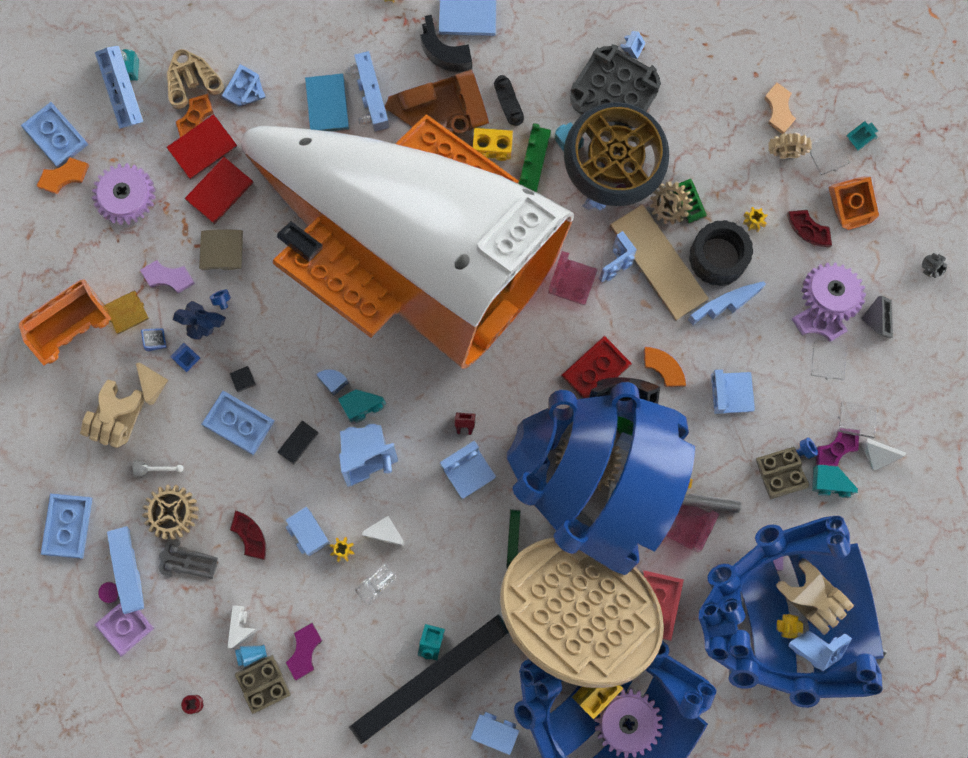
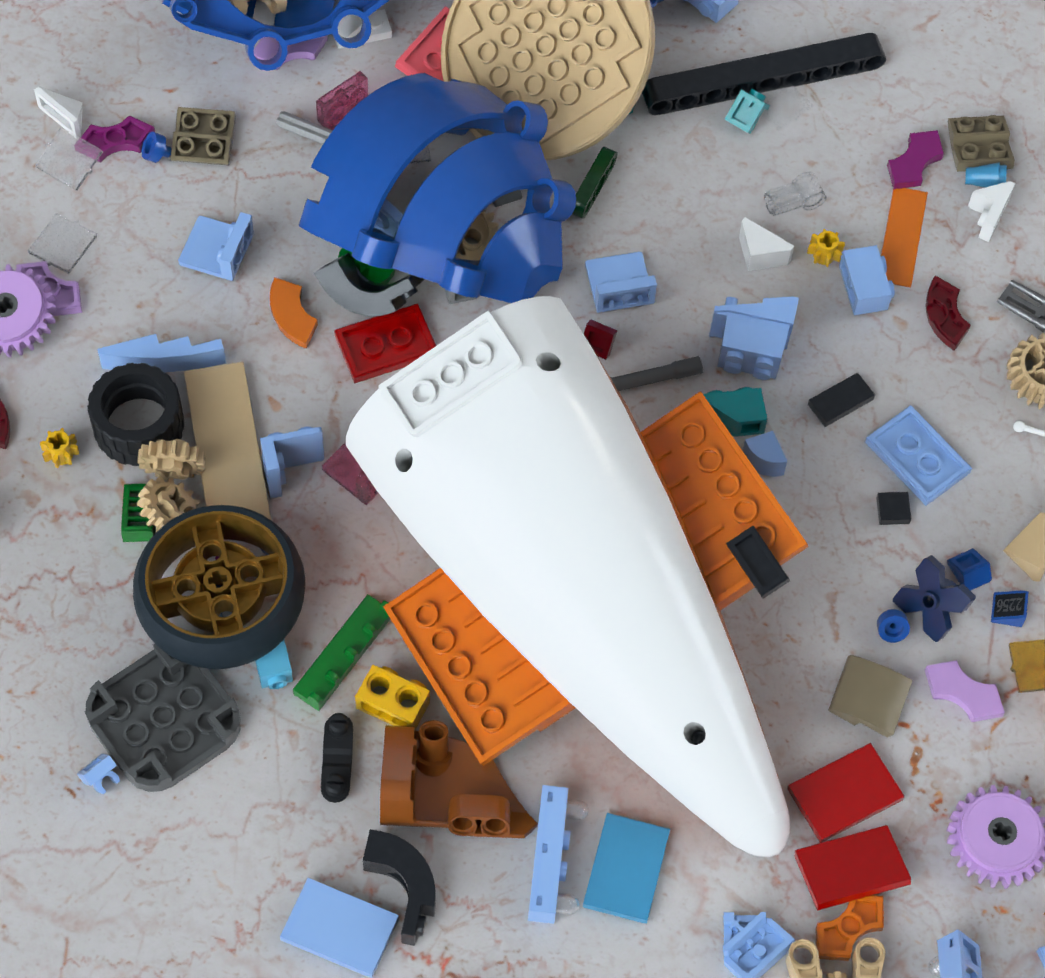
camera: 160 degrees left, 15 degrees down
(295, 587) = (903, 234): none -> orange sticker
(446, 393) = (675, 370): none -> dark grey piece
(684, 229) = (171, 459): none -> tan gear
(832, 480) = (148, 100): teal slope -> none

